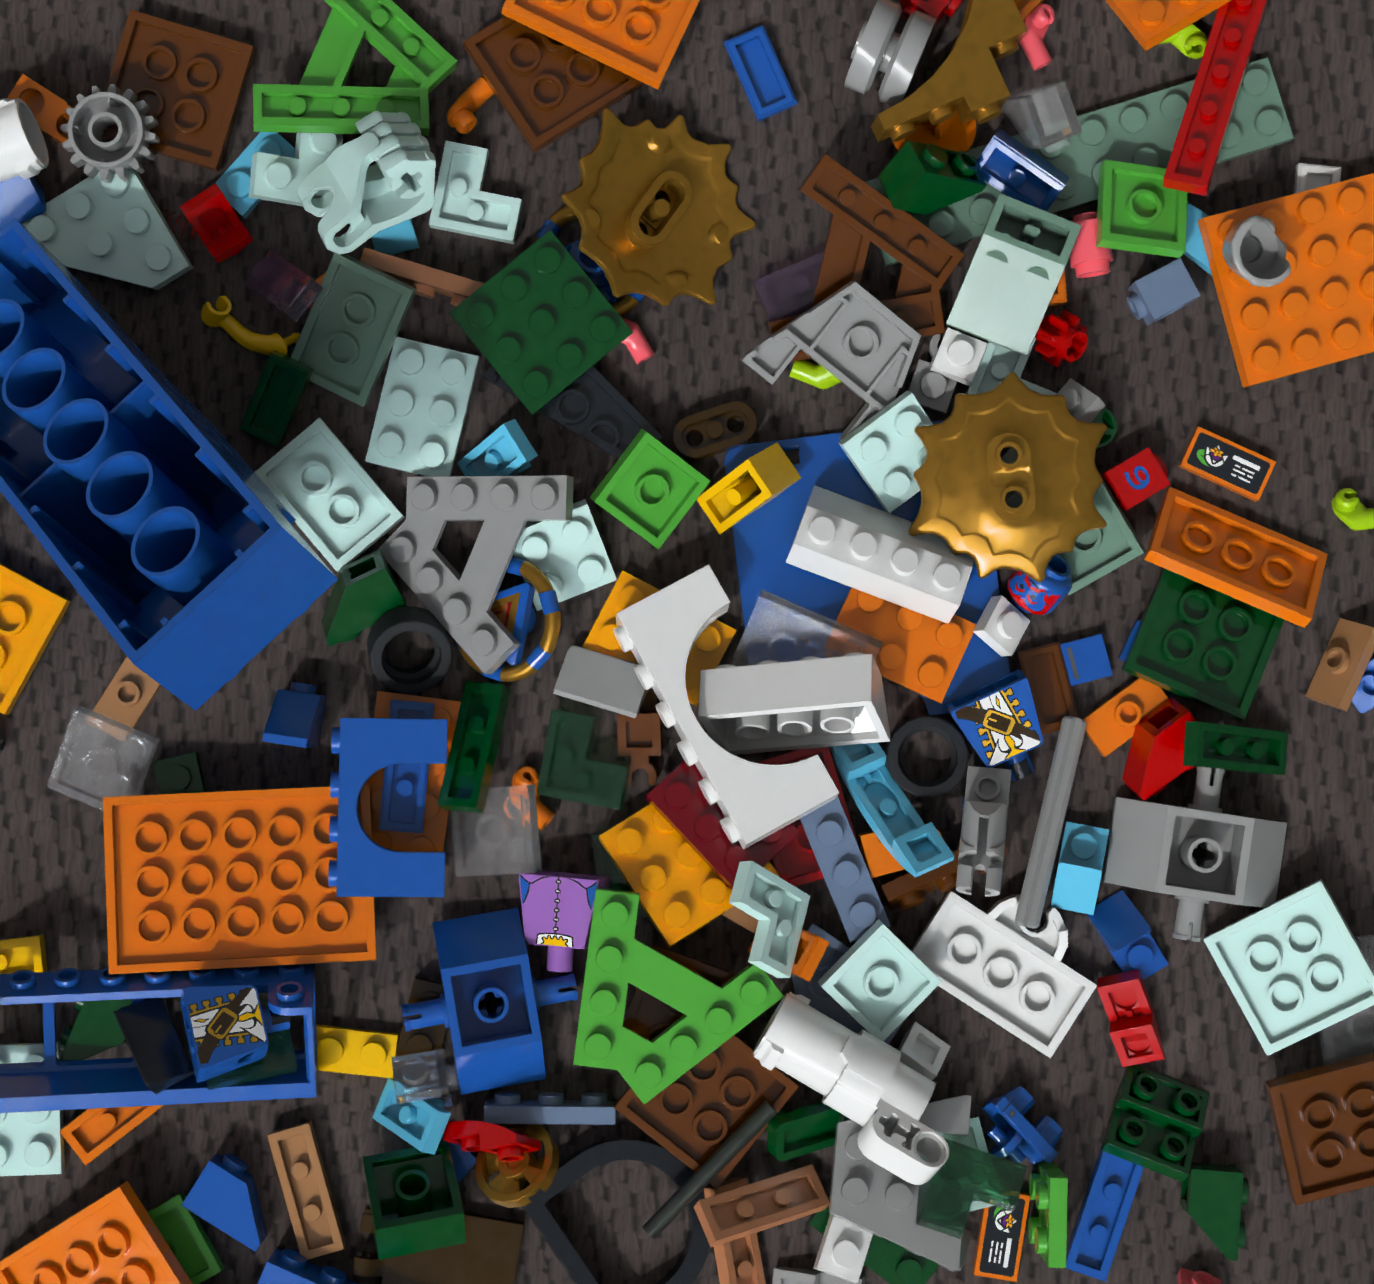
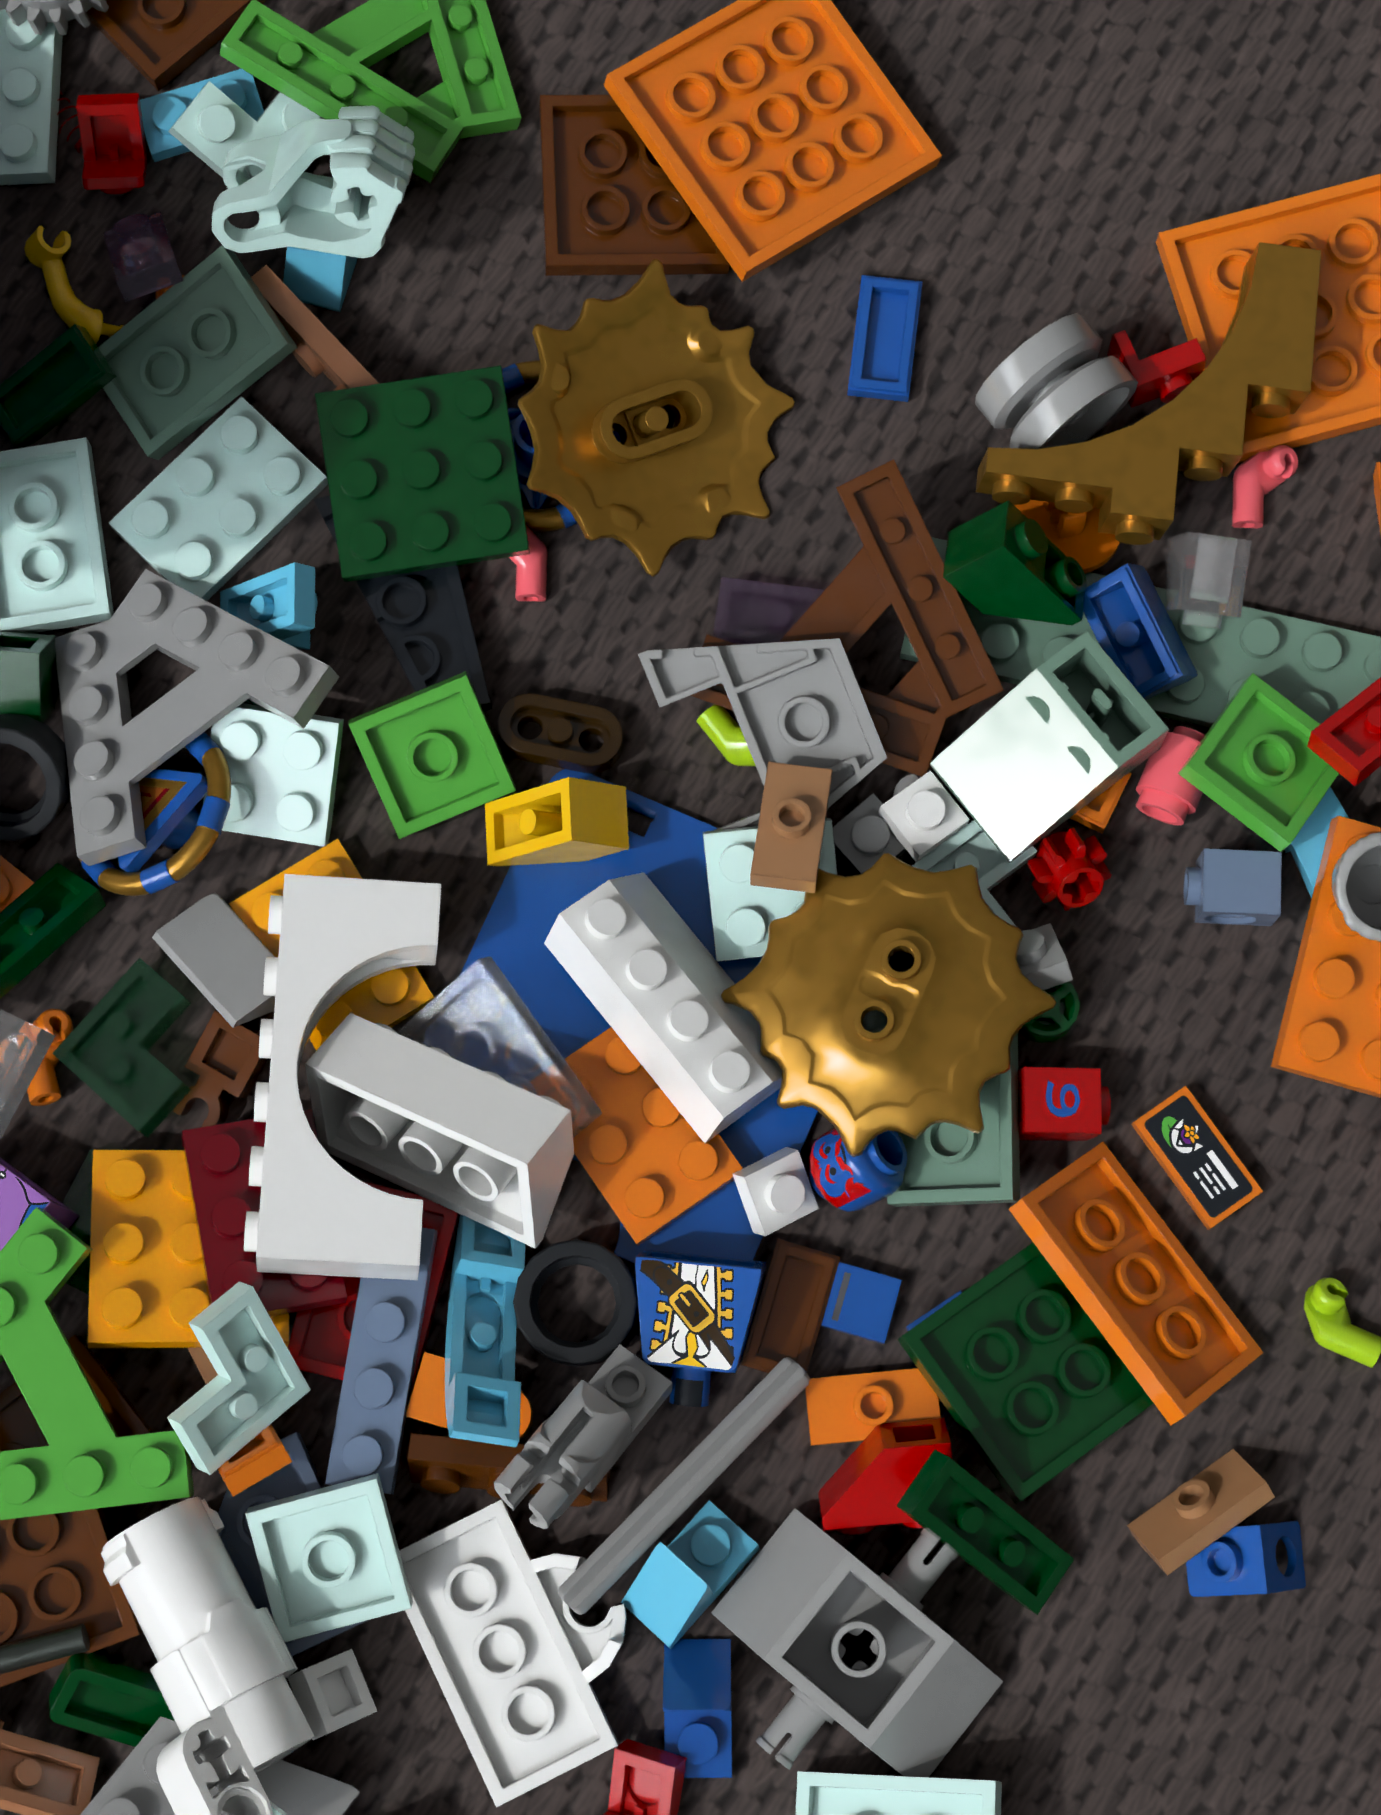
camera: 40 degrees right, 10 degrees down
(462, 111) = (490, 179): orange arm -> none
(462, 203) = (423, 288): light aqua plate -> none
(893, 411) = (791, 827): none -> medium nougat plate

